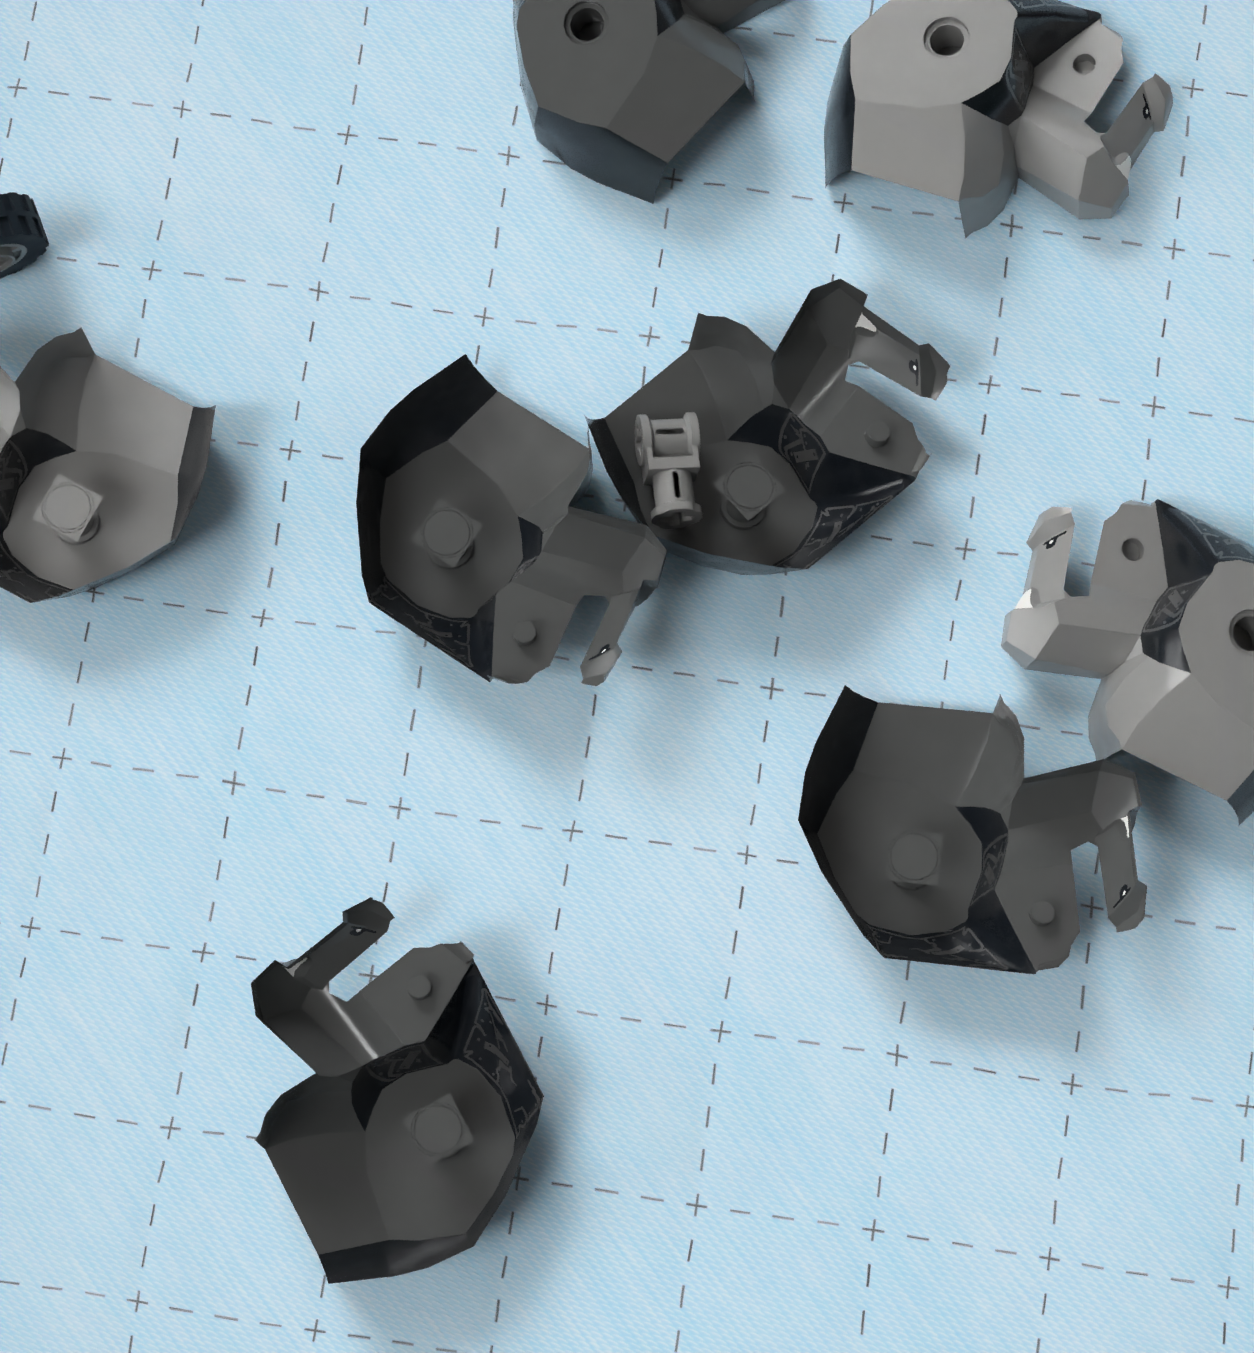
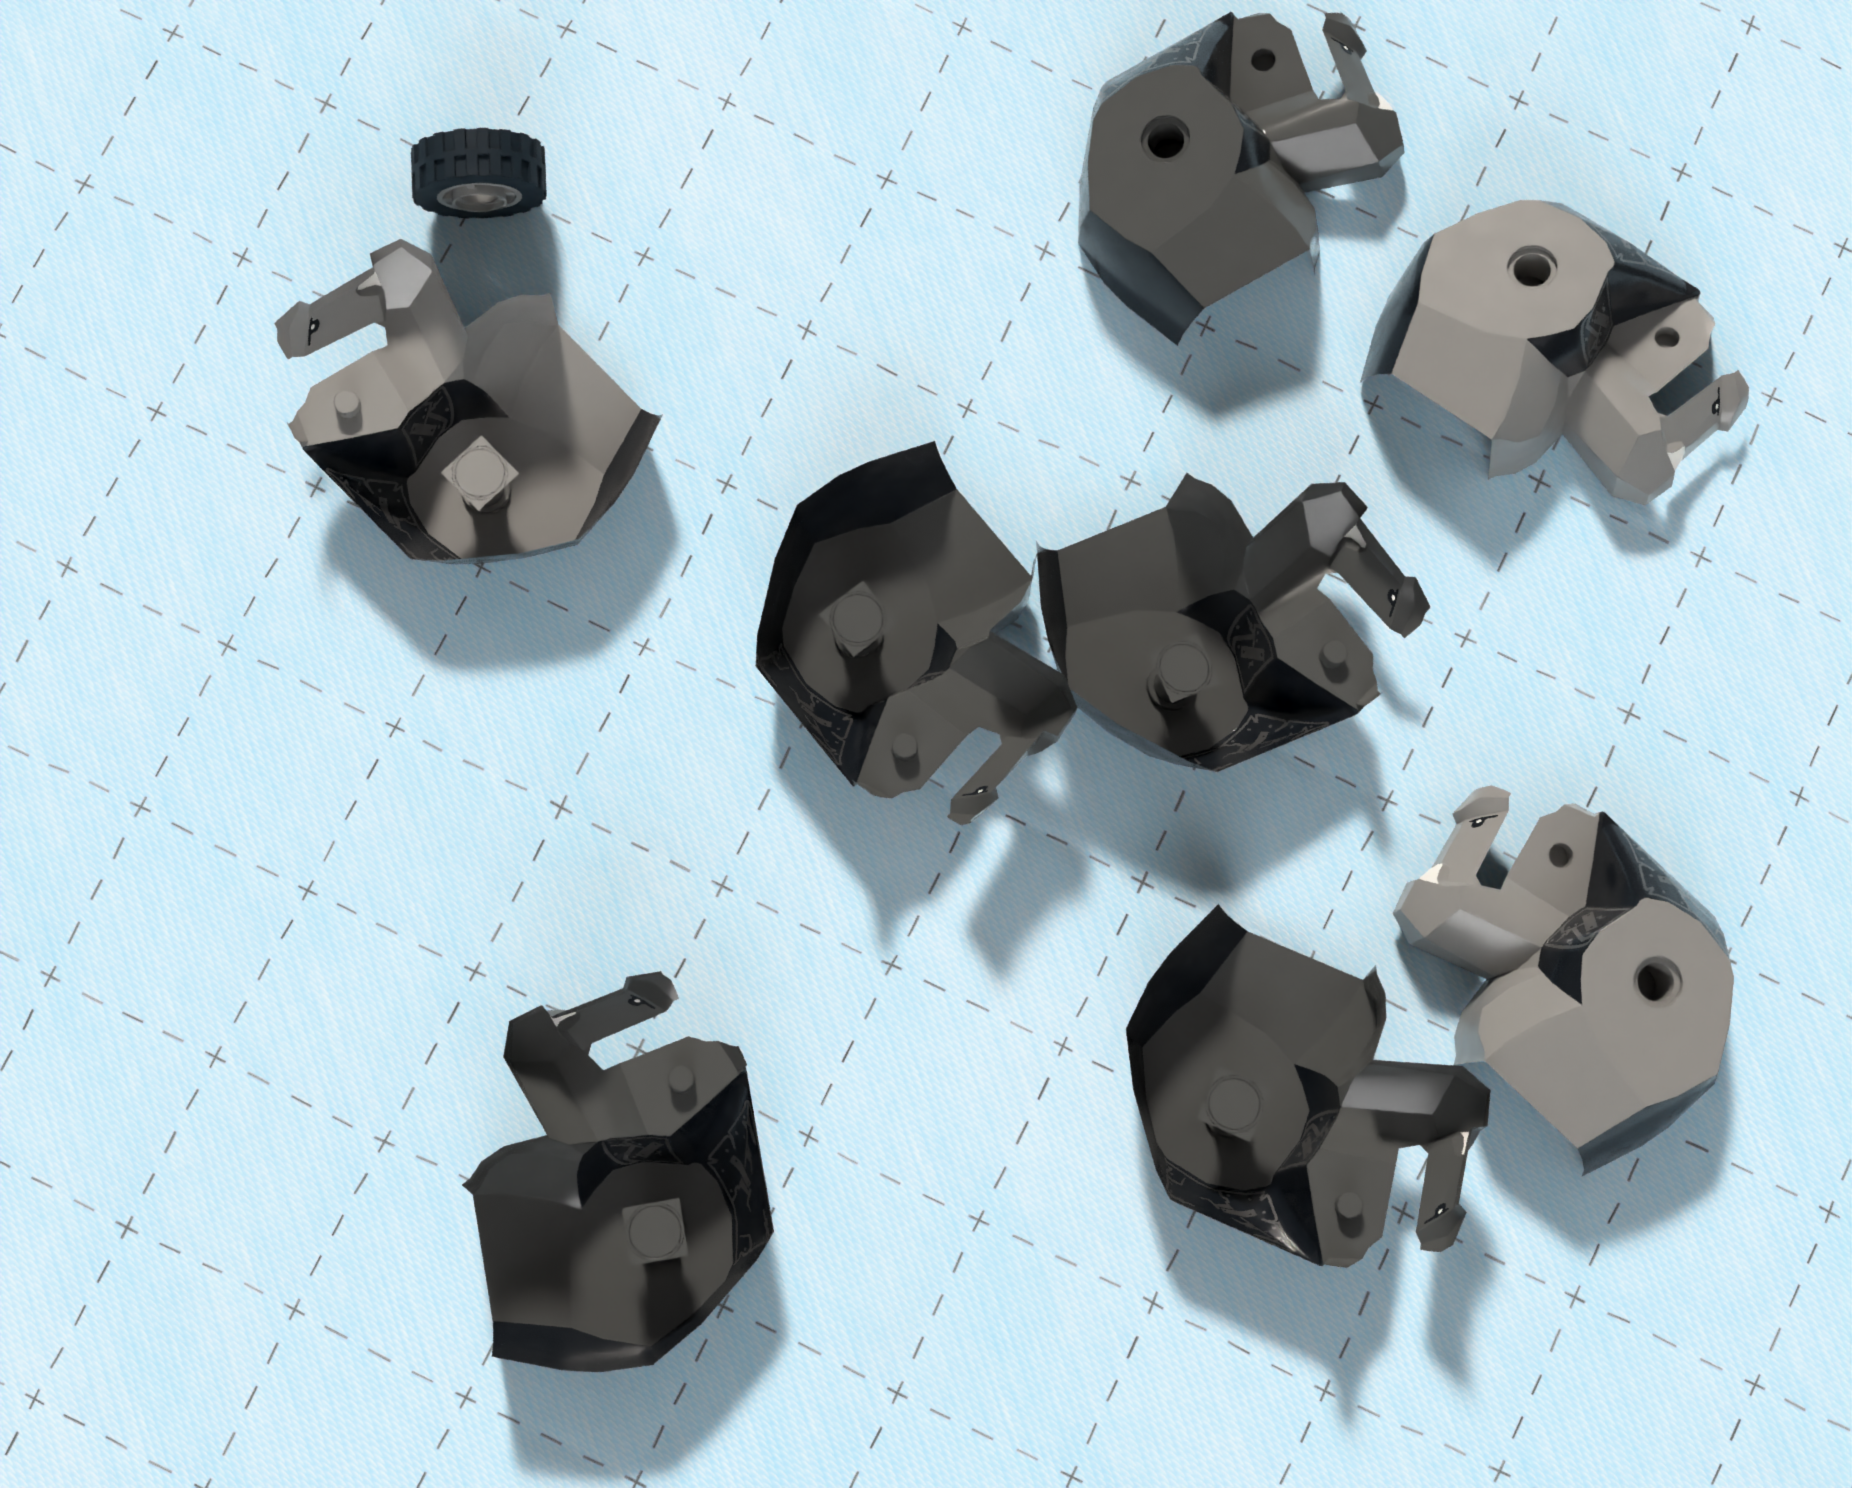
camera: 10 degrees right, 0 degrees up
(670, 462) = (1110, 617): light grey connector -> none

